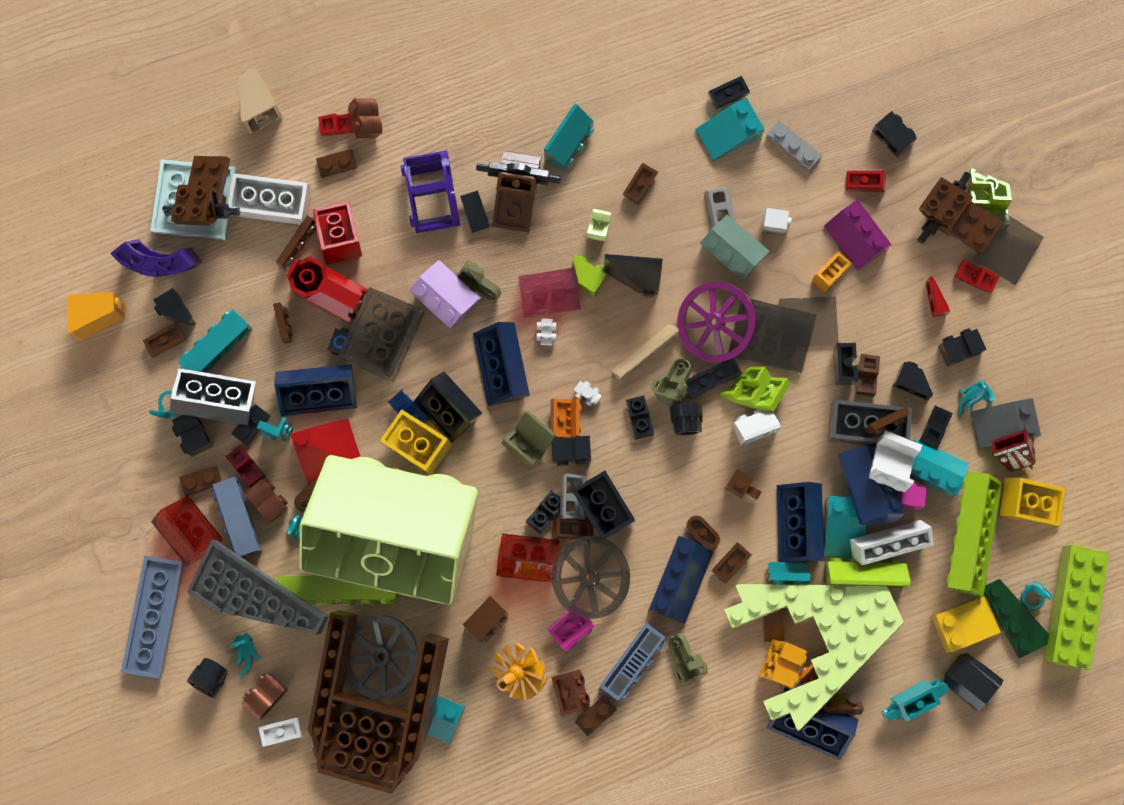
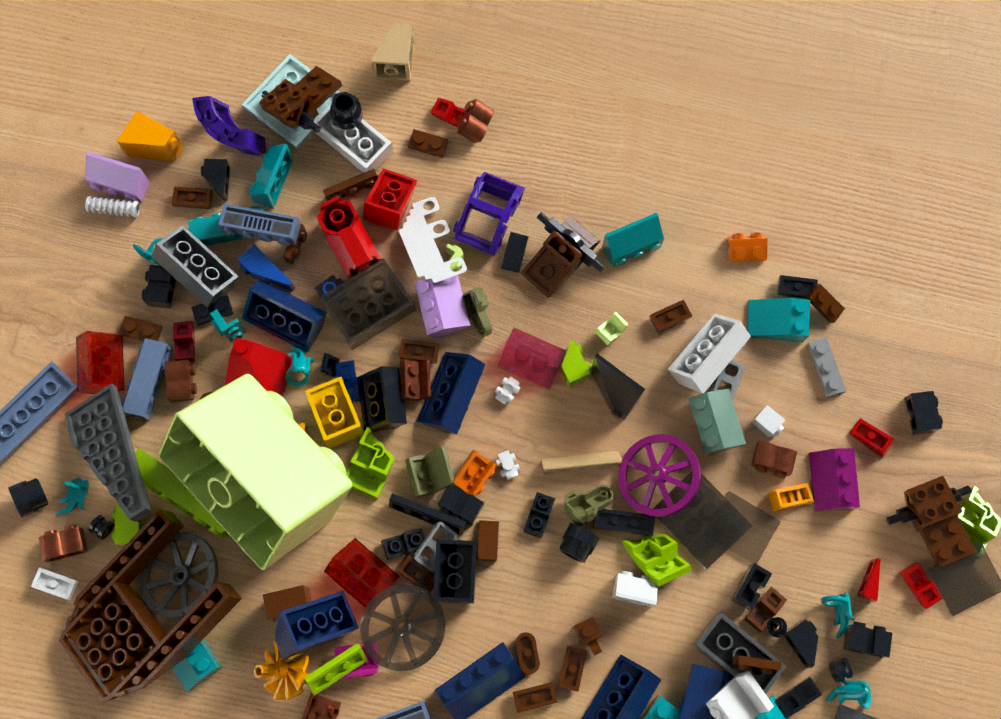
camera: 30 degrees right, 5 degrees down
(86, 365) = (115, 177): none -> lavender slope
(100, 392) = (112, 206): none -> white piece
(221, 277) = (271, 175): none -> teal slope
(244, 325) = (259, 224): none -> sand blue brick
(254, 189) = (347, 119): none -> black piece
(268, 361) = (260, 267): none -> blue slope
(286, 662) = (101, 527): none -> black wheel
(309, 648) = (124, 527): none -> lime slope
(359, 422) = (298, 365): none -> teal piece
(382, 406) = (328, 364): none -> black slope
(392, 256) = (421, 247): none -> white piece
(431, 252) = (455, 252): none -> yellowish green bracket
(451, 346) = (419, 351): none -> reddish brown plate
(465, 372) = (415, 380): none -> copper bracket
(475, 466) = (370, 466): none -> lime slope
(520, 620) = (314, 624): none -> dark blue slope
(547, 476) = (425, 513): none -> black tile
(560, 644) = (335, 669): none -> lime plate
(612, 464) = (488, 540): none -> reddish brown slope
(666, 84) = (747, 247): none -> orange bracket
(692, 194) = (709, 353): none -> white brick
(746, 521) = (572, 668): none -> reddish brown plate
(760, 92) = (825, 303): none -> reddish brown plate
(799, 249) = (774, 459): none -> copper brick
(881, 383) = (772, 626): none -> black plate
(928, 335) = (843, 610): none -> teal piece
(955, 384) = (840, 669): none -> black wheel

